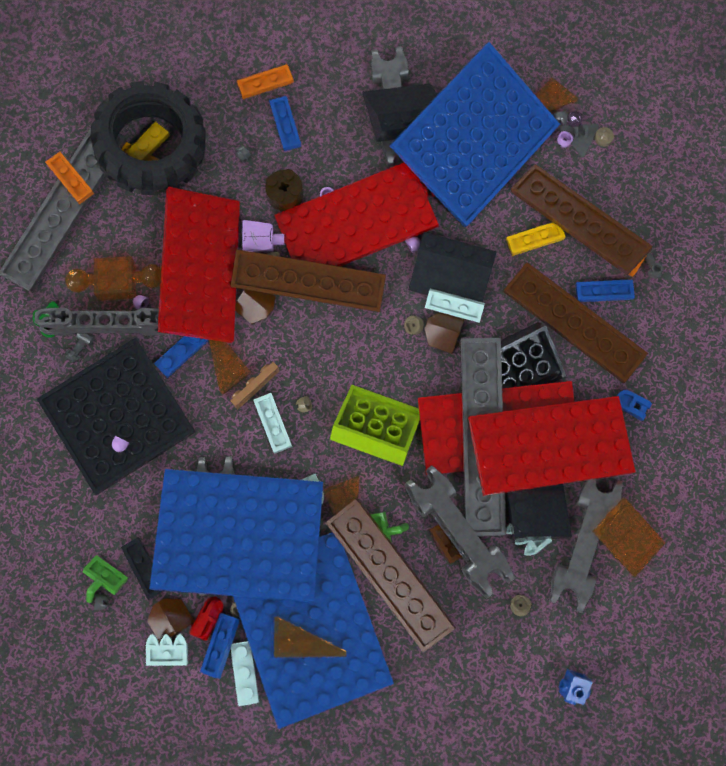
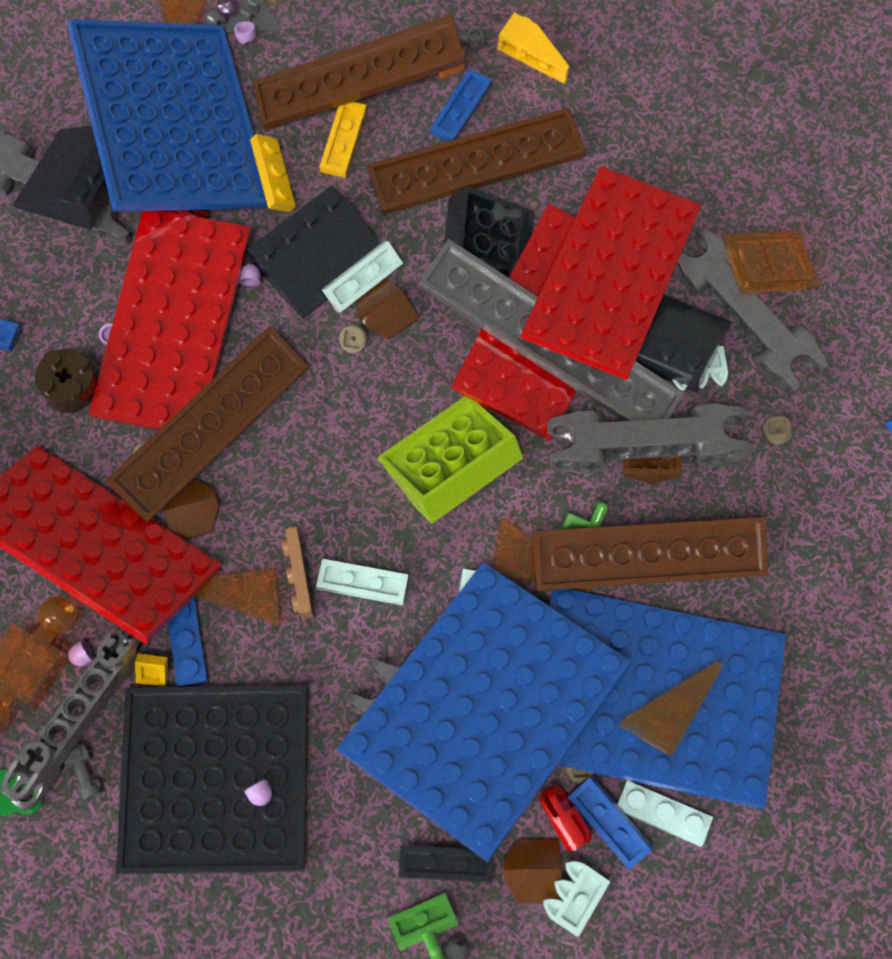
camera: 60 degrees left, 5 degrees down
(153, 344) = (151, 670): none -> yellow plate
(260, 237) = (105, 447): lavender torso -> none
(304, 404) = (364, 528): dark tan hinge -> none
(485, 214) = (272, 173): none -> yellow plate
(628, 401) = (610, 159): blue plate -> none
(675, 301) = (528, 44): none -> yellow slope

